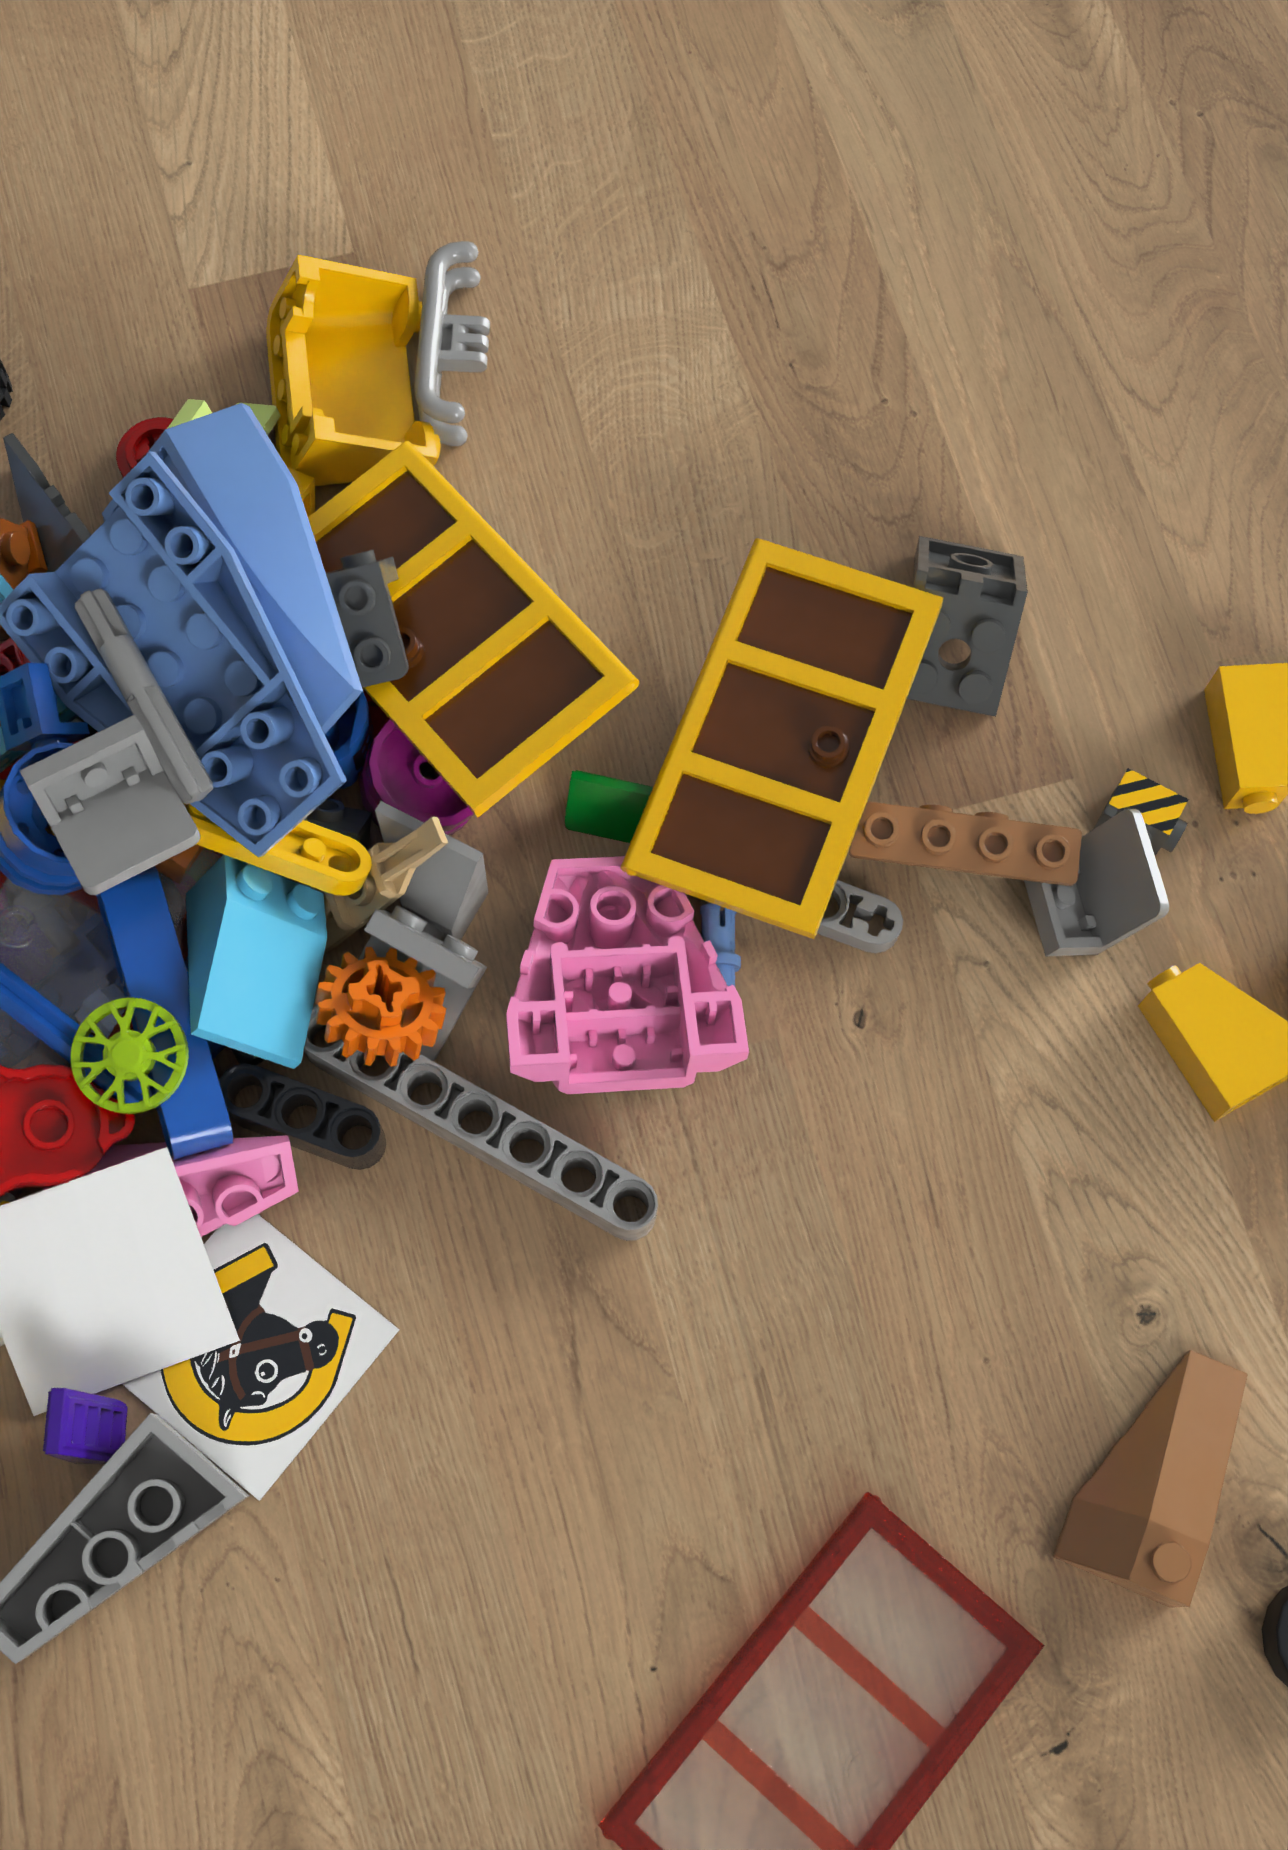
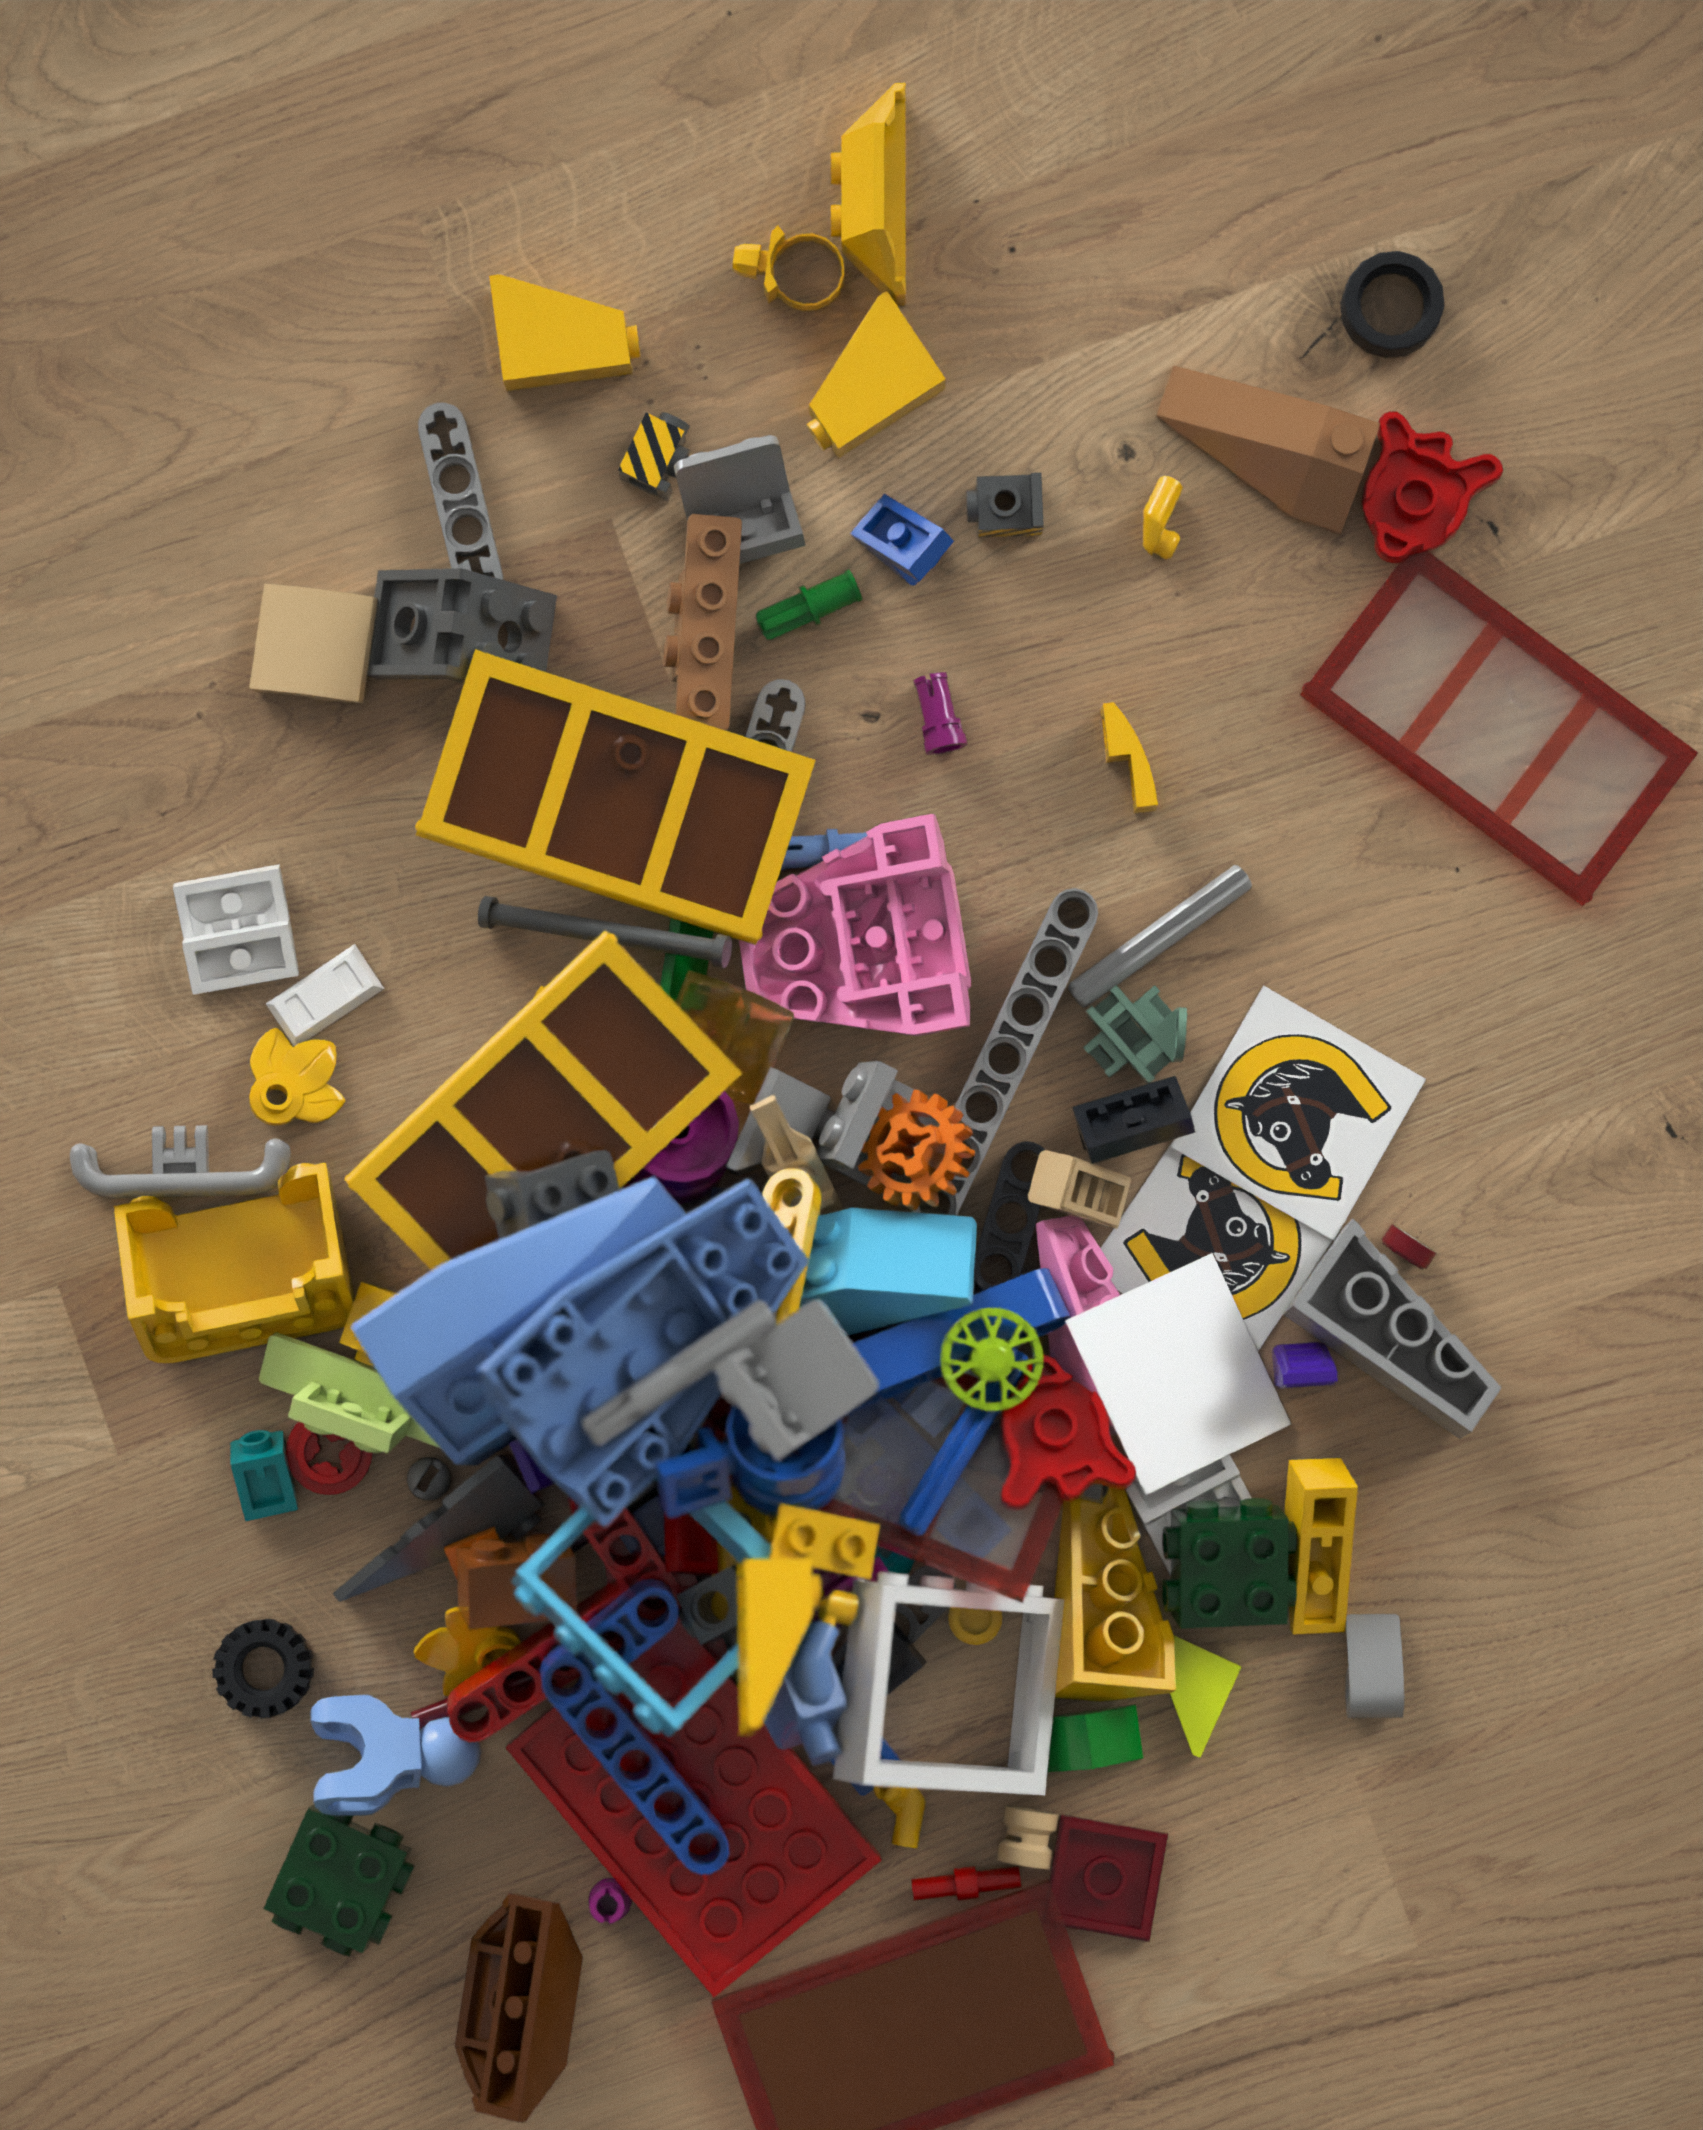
camera: 90 degrees left, 15 degrees up
(143, 393) = (262, 1474): none -> teal bracket
(211, 1568) = (1408, 1247): none -> dark red tile
(331, 1157) = (1076, 1188): none -> tan slope
(386, 1455) = (1299, 1113): none -> sticker
(391, 1253) = (1133, 1119): none -> black bracket
(495, 1277) = (1127, 1042): none -> sand green piece
(527, 455) = (297, 1072): none -> yellow plate
(532, 834) = (740, 1025): none -> clear yellow slope
(601, 1308) = (1160, 936): none -> light grey axle
(605, 486) = (325, 996): none -> white tile
(615, 820) = (494, 913): none -> dark grey bar
(675, 412) = (236, 929): none -> white slope
(818, 1278) = (1123, 745): none -> yellow slope
(845, 1085) = (941, 729): none -> magenta pin
(951, 493) = (313, 643): none -> tan slope
(980, 959) = (808, 605): none -> green axle
(1048, 1059) = (902, 539): none -> blue slope
(1075, 1337) = (1156, 515): none -> yellow arm
(1078, 1189) = (1021, 520): none -> dark grey brick
(1090, 642) = (465, 504): none -> light grey beam
(1107, 1657) = (1418, 491): none -> red tile

